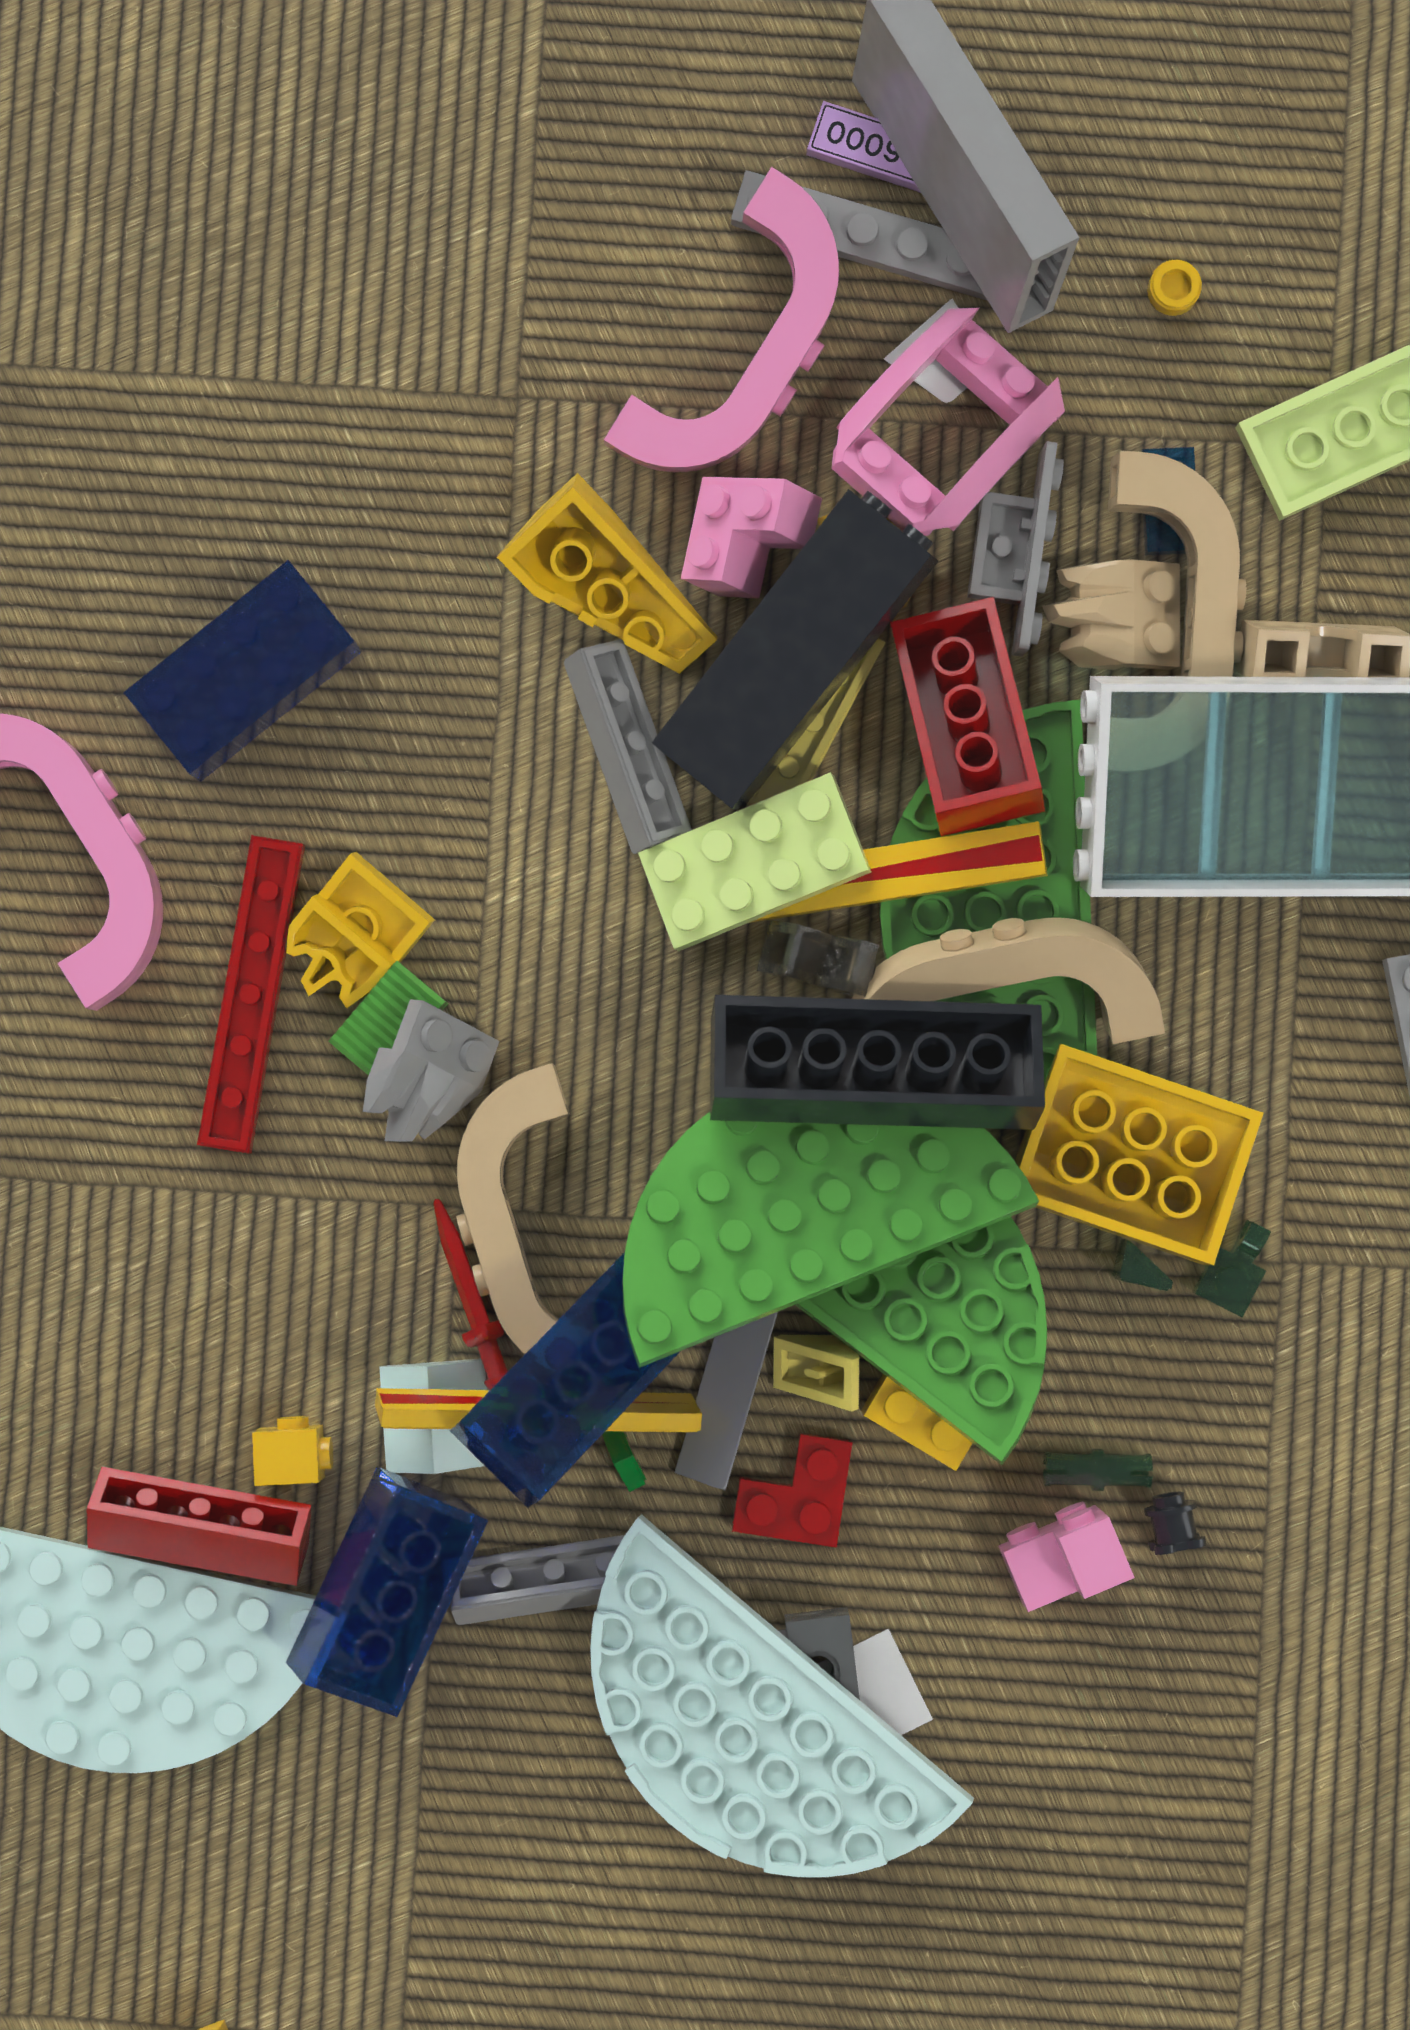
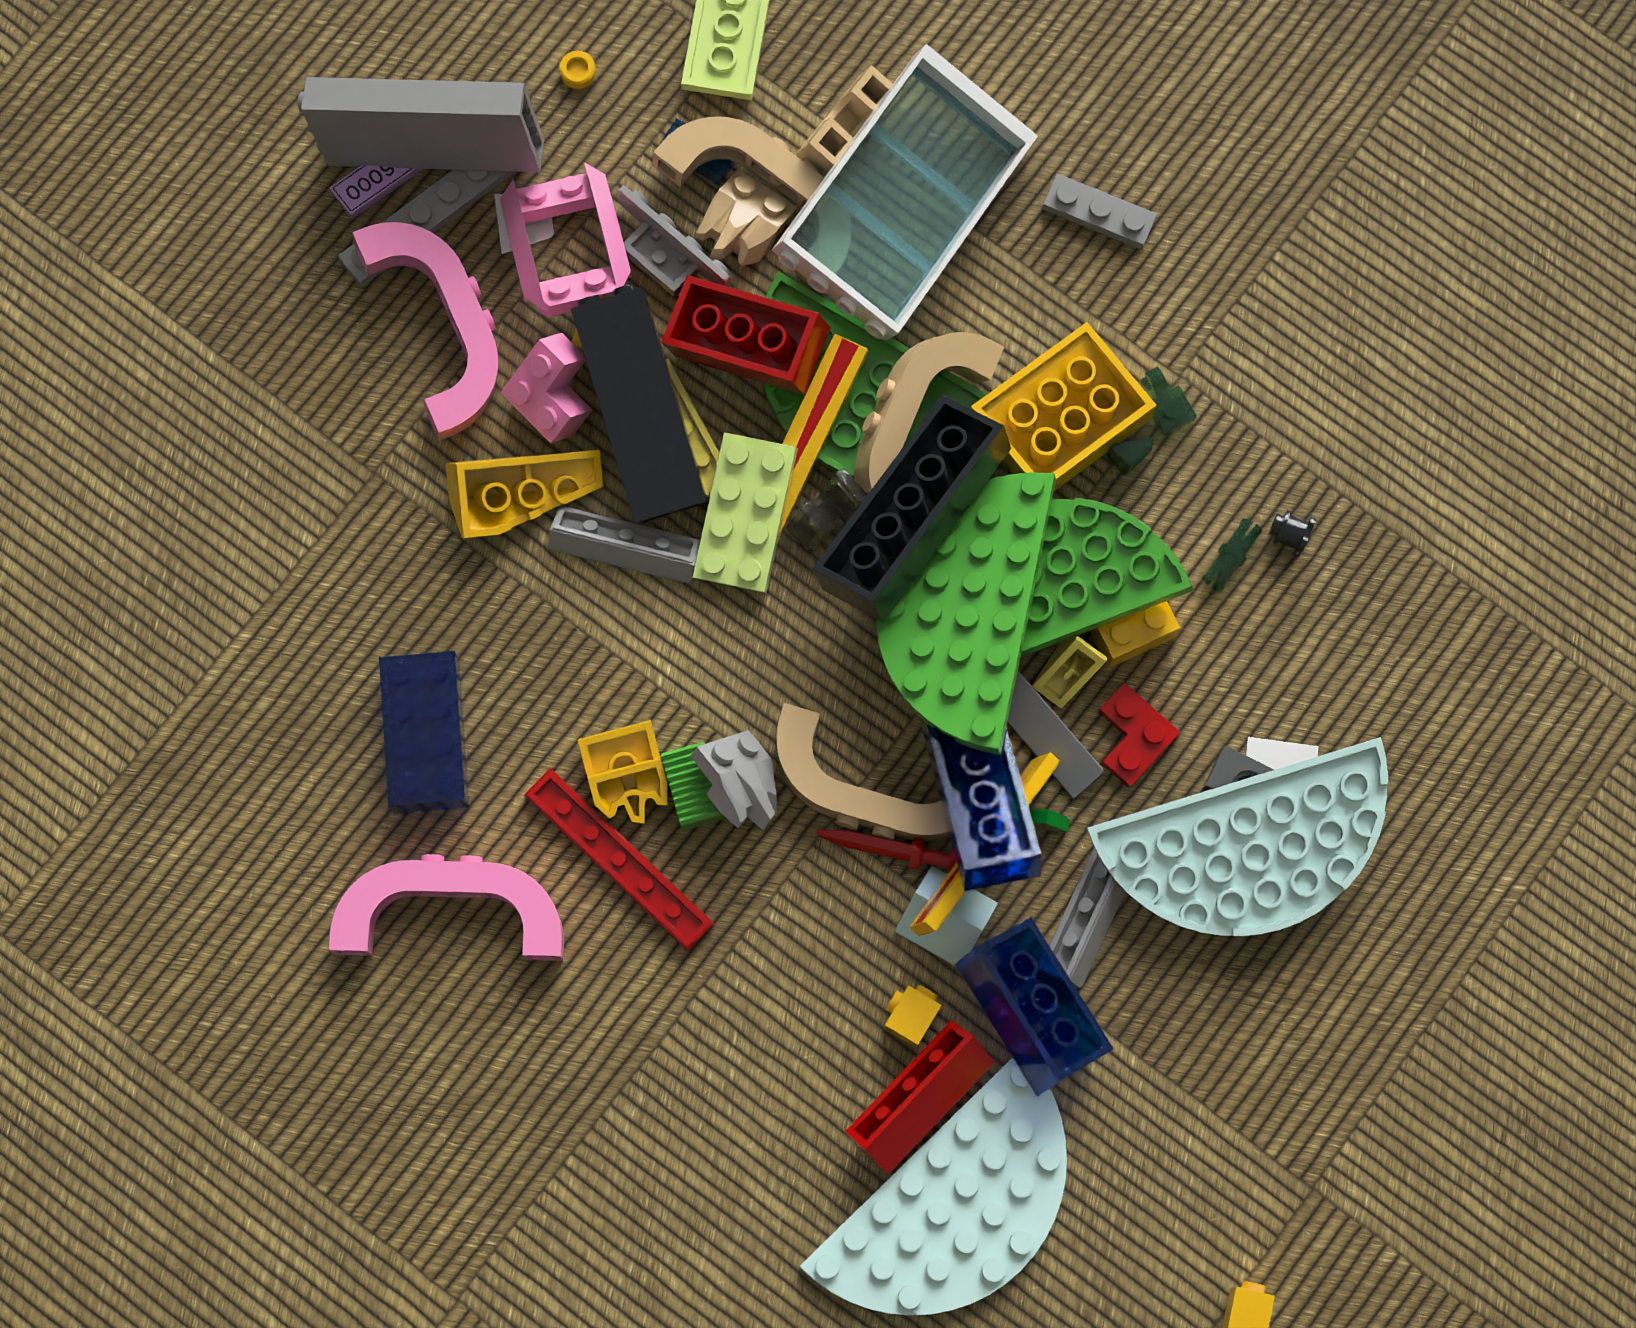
camera: 60 degrees left, 10 degrees down
(1065, 1557) = (1273, 593): bright pink brick -> none

